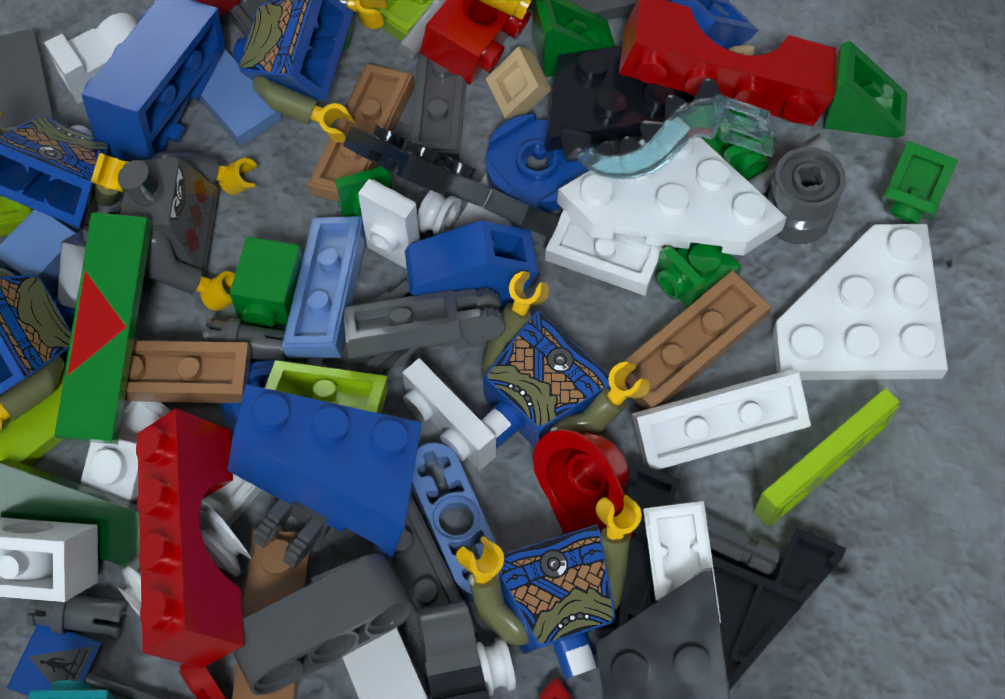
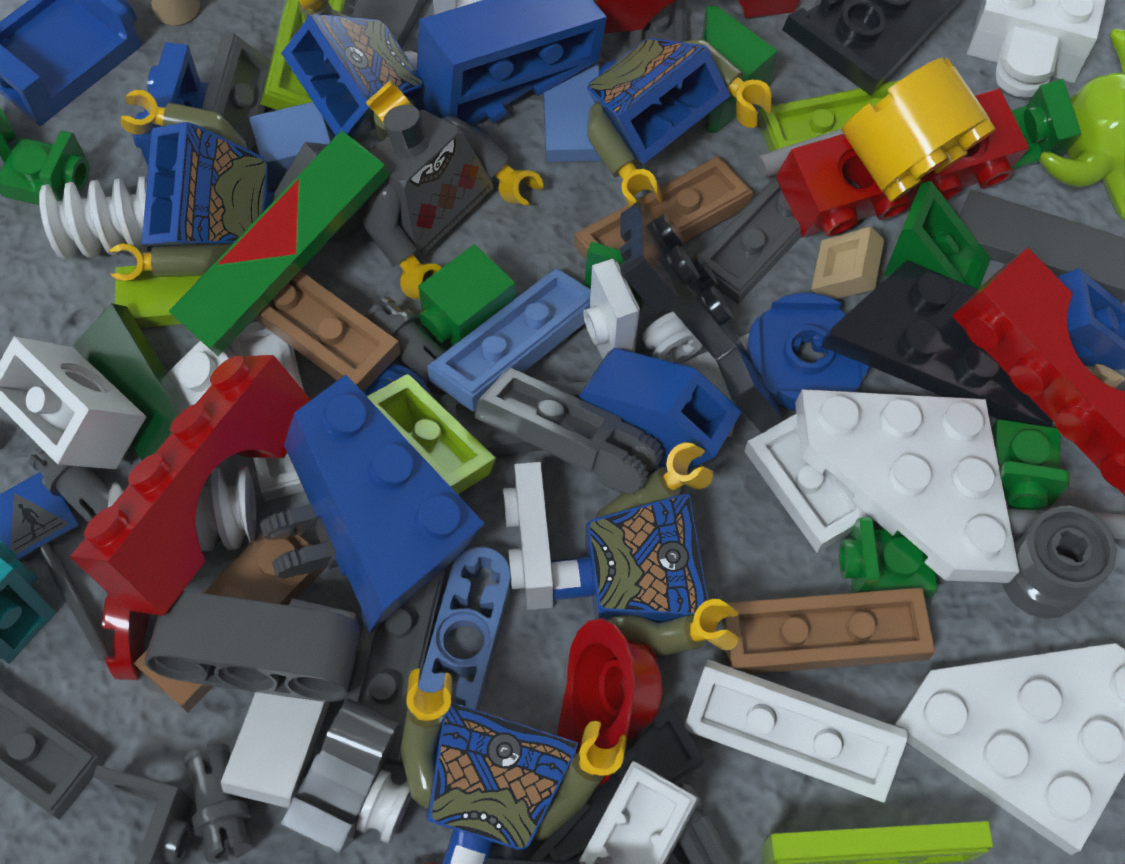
camera: 35 degrees right, 0 degrees up
(667, 138) = (944, 410): clear light blue piece -> none

